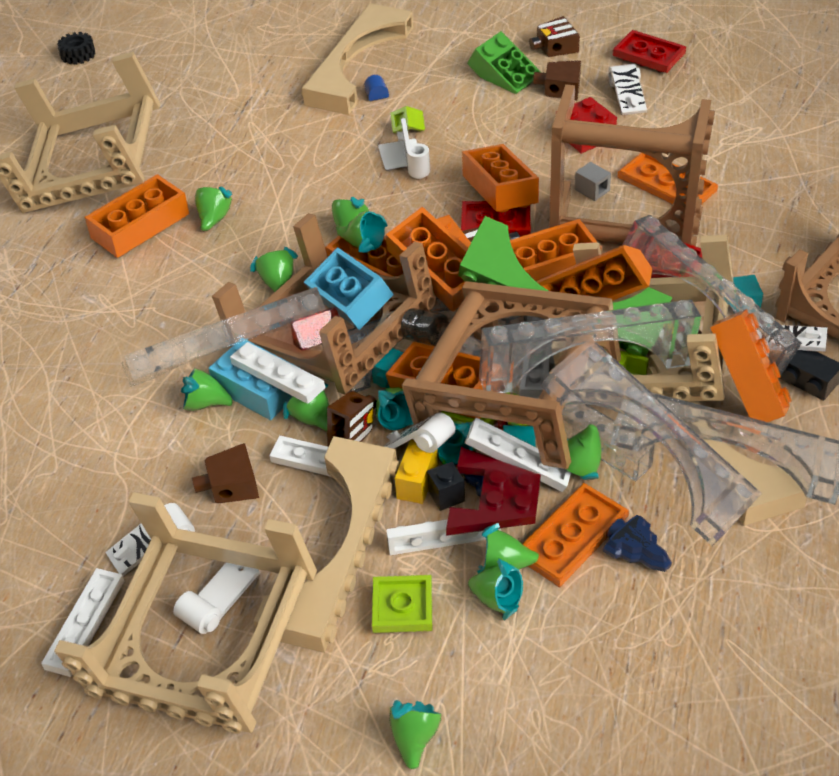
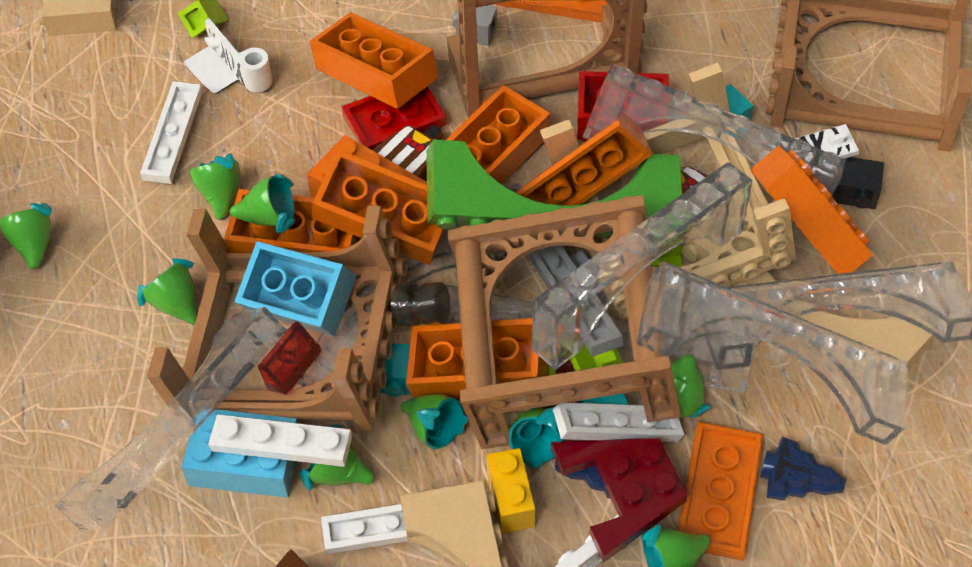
camera: 30 degrees left, 10 degrees up
(203, 391) = (185, 499): bright green hat -> none
(341, 181) = (171, 132): none -> white plate
(350, 417) = (396, 449): reddish brown torso -> none
(427, 434) = (508, 440): white door -> none
(446, 486) = (556, 495): black brick -> none

